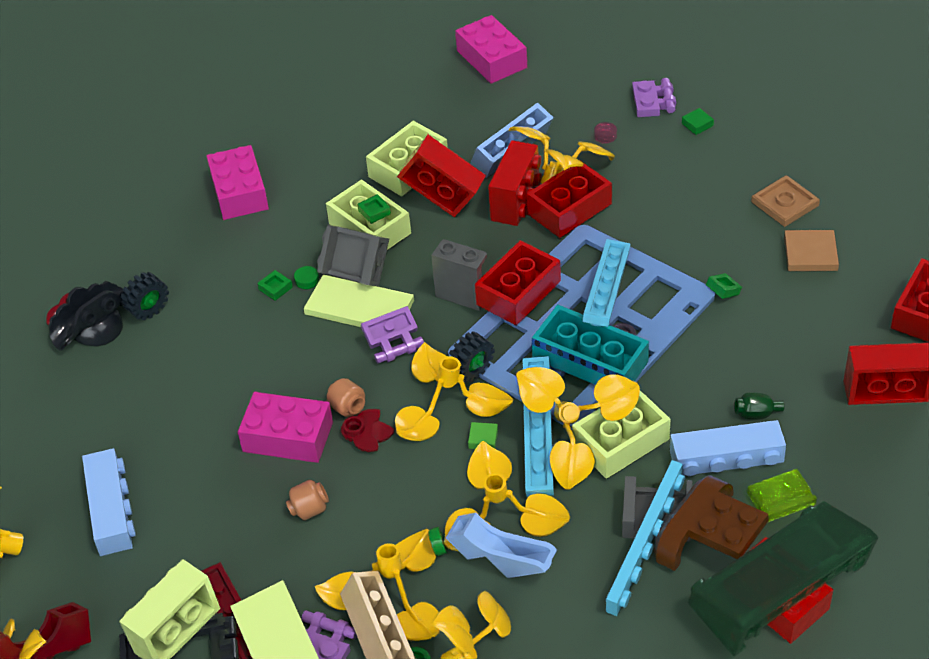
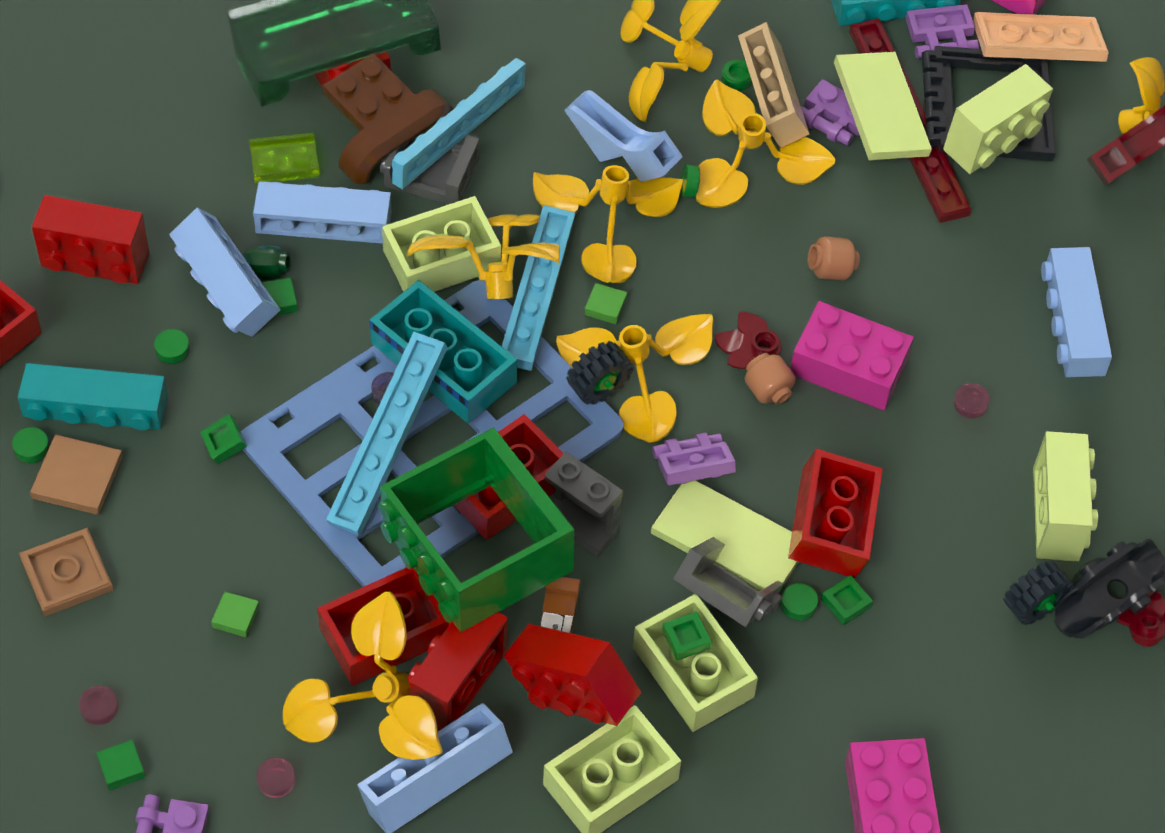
camera: 175 degrees left, 10 degrees up
(124, 353) = (1064, 496): none -> yellowish green brick
(192, 427) = (971, 400): none -> clear pink tile
(286, 312) = (835, 513): none -> red brick
(462, 230) = (561, 604): none -> dark orange leg
(537, 174) = (447, 481): none -> green window
(667, 200) = (235, 614): none -> bright green tile
(726, 144) = (98, 705): none -> clear pink tile
(732, 387) = (283, 294): none -> green tile
(779, 381) = (224, 273): none -> light blue brick
(792, 338) = (172, 346): none -> green tile
(826, 288) = (93, 396): none -> teal brick
(852, 260) = (30, 445): none -> green tile

